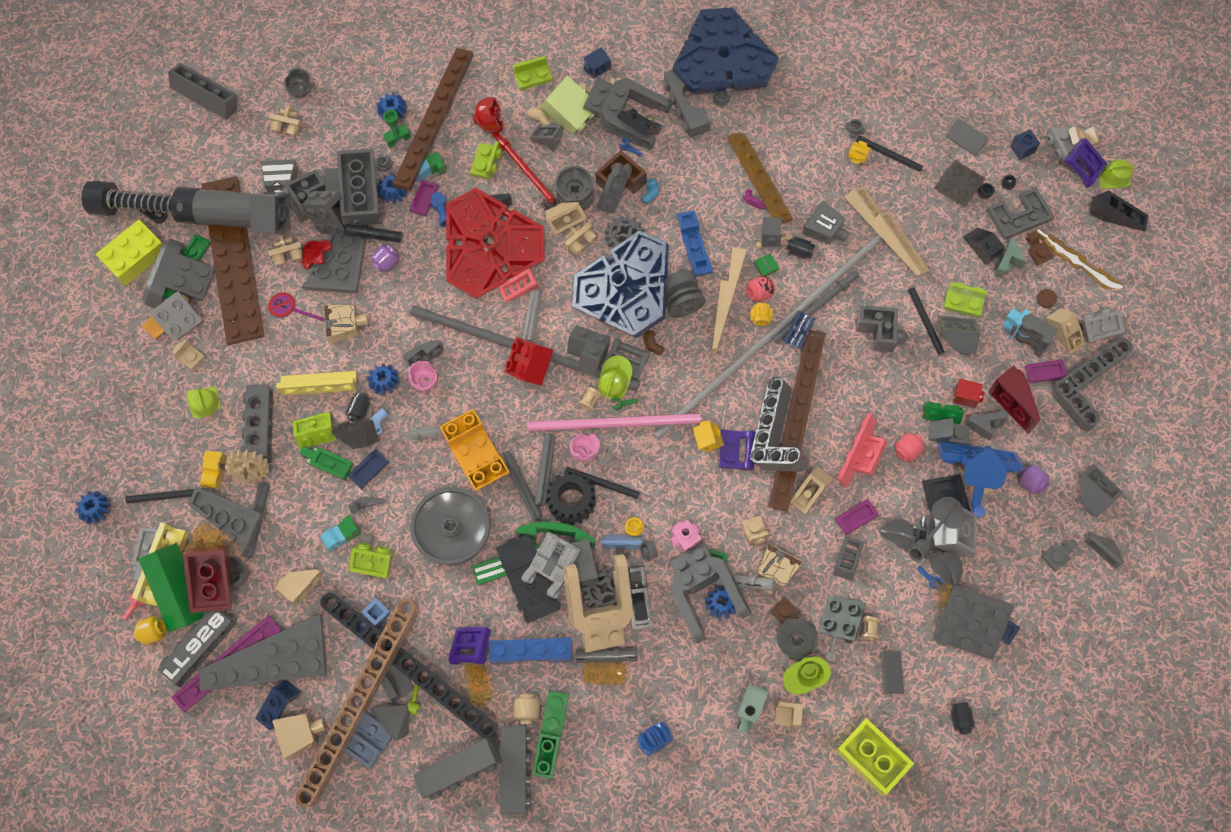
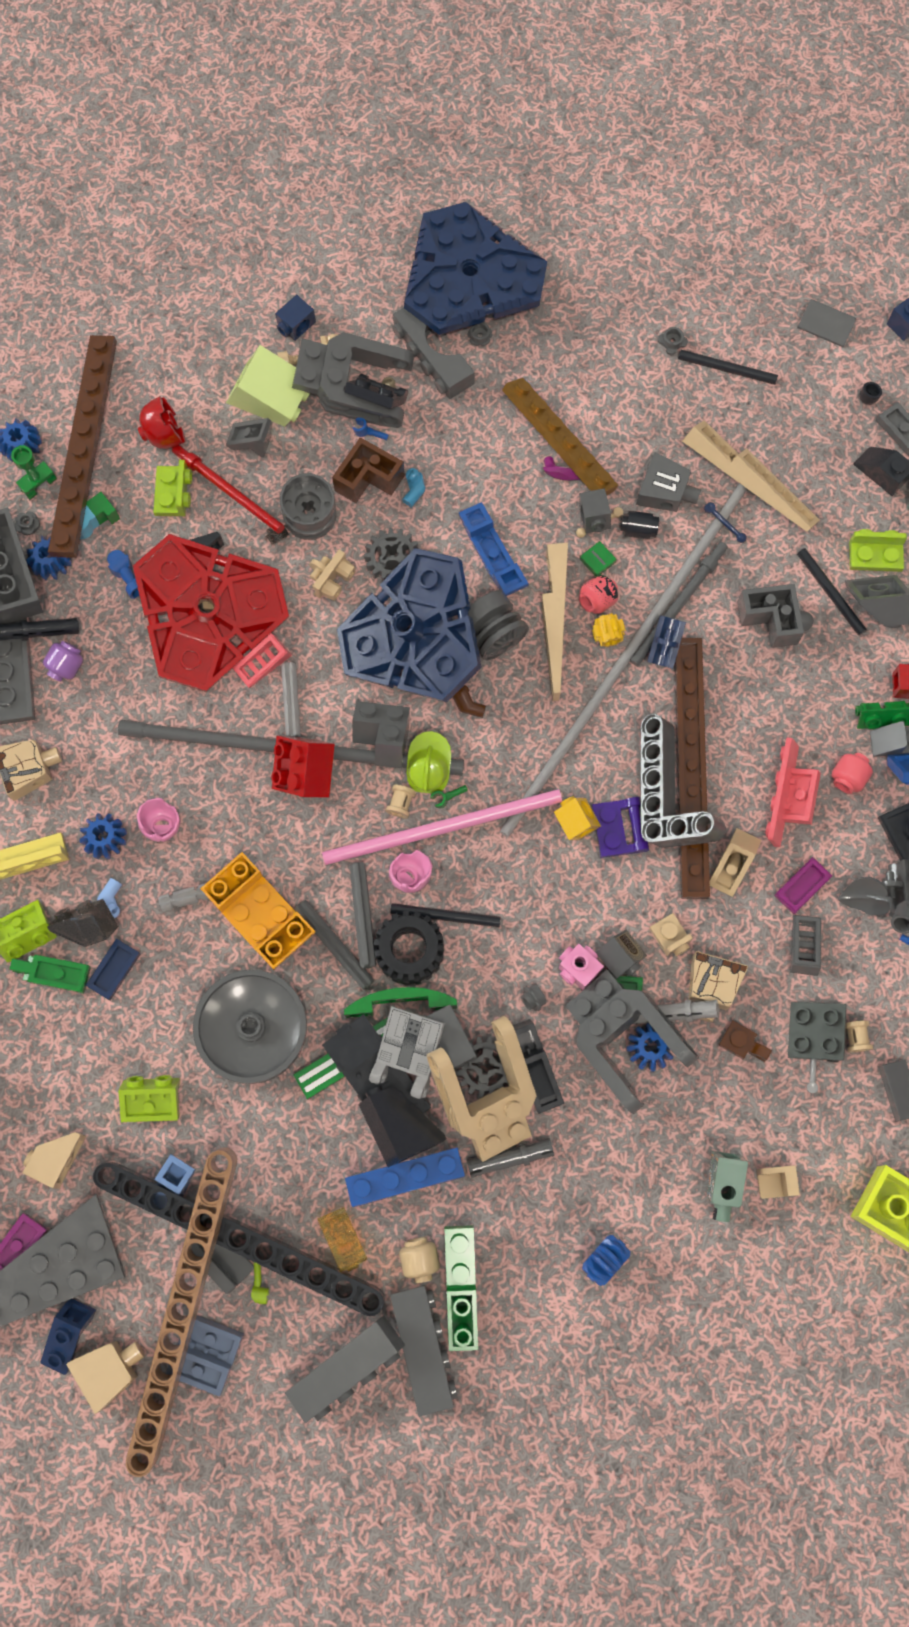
camera: 15 degrees left, 5 degrees up
(340, 534) = (96, 1072): leg -> none
(357, 407) = (76, 885): black brick -> none
(364, 502) = (118, 1019): dark grey bar -> none
(393, 719) = (236, 1318): dark grey slope -> none
(421, 202) = (95, 564): magenta tile -> none
(429, 349) = (159, 779): dark grey slope -> none
(470, 639) = (319, 1180): dark purple plate -> none
(532, 73) = (207, 350): lime bracket -> none
(533, 613) = (398, 1125): none -> black slope
(538, 114) = (230, 408): tan arm -> none
(564, 216) = (304, 548): tan slope -> none
(604, 673) = (513, 1183): clear yellow hinge -> none
(614, 187) = (363, 493): dark grey hinge -> none
(621, 542) = (493, 991): medium blue slope -> none
(634, 526) = (505, 968): yellow plate -> none
(637, 365) = (454, 738): dark grey plate -> none
(716, 535) = (622, 954): none -> dark grey brick
(799, 627) = (761, 1060): dark grey plate -> none
(806, 675) = (790, 1122): lime piece -> none
(852, 246) = (710, 508): none -> dark blue hinge
(859, 152) = (687, 374): yellow gear -> none
(959, 183) = (832, 390): clear smoke slope -> none
(1009, 182) = (898, 376): black hinge -> none

